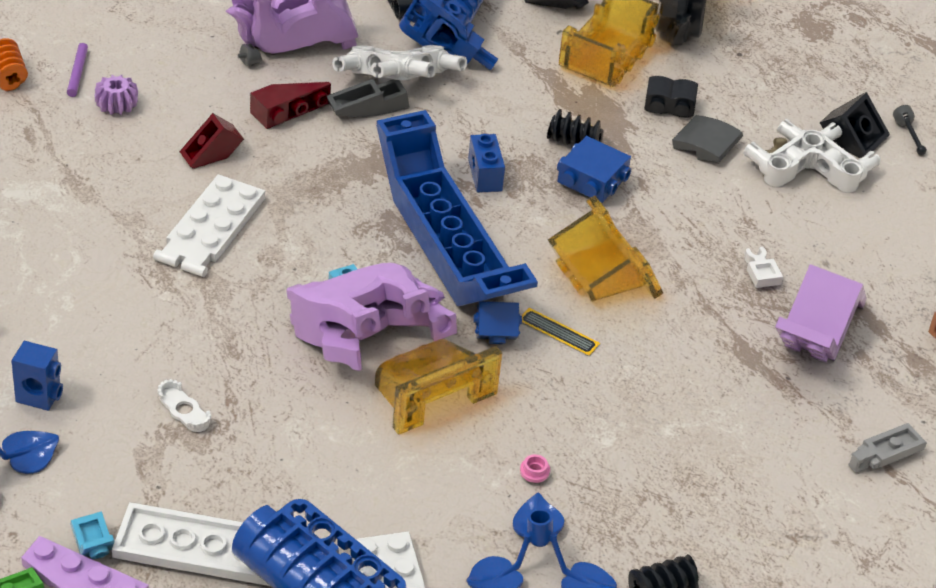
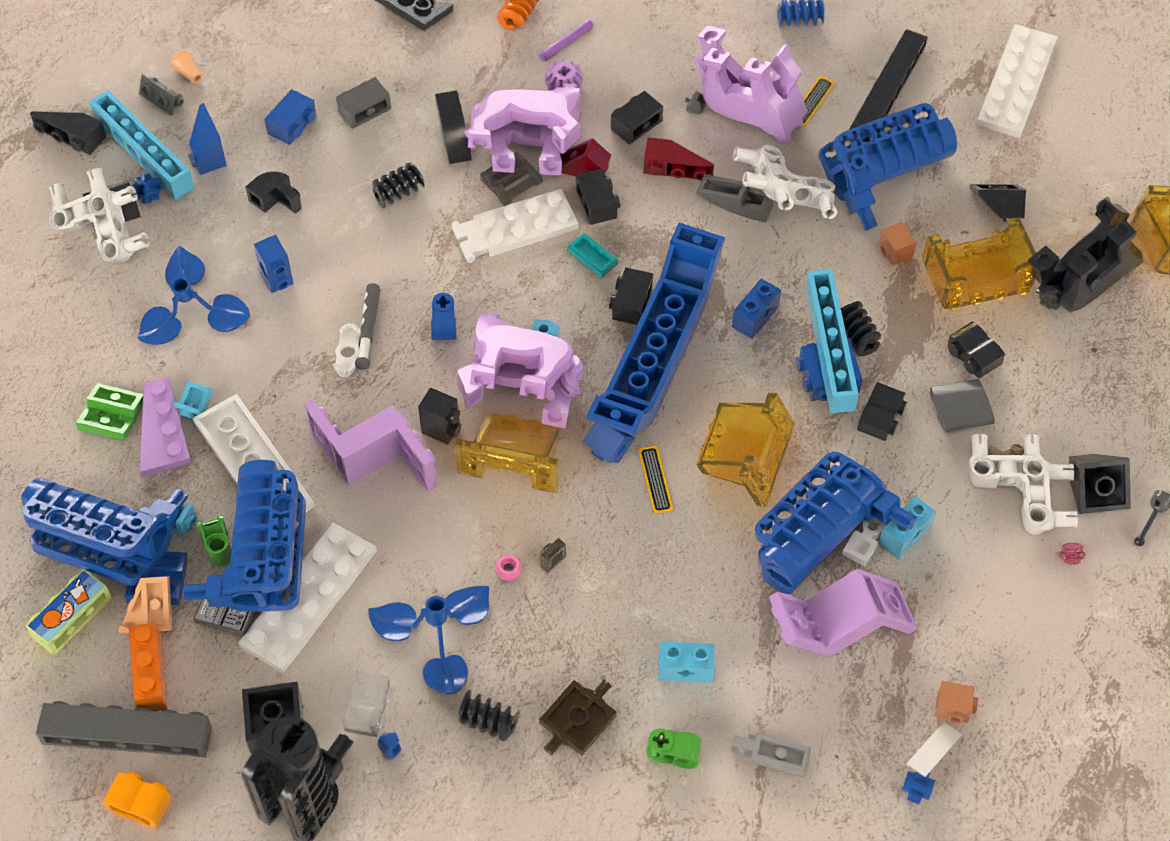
camera: 50 degrees right, 15 degrees up
(62, 181) = (453, 126): none -> black slope
(69, 252) = (396, 183): none -> black piece
(141, 130) = (528, 119): none -> lavender piece
(155, 187) = (499, 180): none -> clear smoke plate
(170, 368) = (370, 308): none -> dark grey piece
(215, 89) = (636, 117): none -> black brick
(243, 325) = (443, 317): none -> blue piece
(256, 162) = (597, 196): none -> black brick
(301, 473) = (371, 444): none -> lavender bracket
(306, 206) = (592, 255): none -> teal plate
(343, 392) = (439, 416): none -> black brick
(379, 213) = (632, 295): none -> black brick
(529, 61) = (897, 243): none -> nougat brick
(558, 433) = (552, 554): none -> clear smoke plate
(587, 137) = (831, 341): none -> medium azure brick
(662, 175) = (881, 411): none -> black brick
(728, 531) = (578, 717): none -> dark brown plate
(729, 265) = (822, 519): none -> blue piece
(754, 431) = (686, 662): none -> medium azure brick
(779, 235) = (898, 539): none -> medium azure brick
(822, 498) = (677, 748): none -> bright green piece
(896, 183) = (1072, 553): none -> clear pink plate

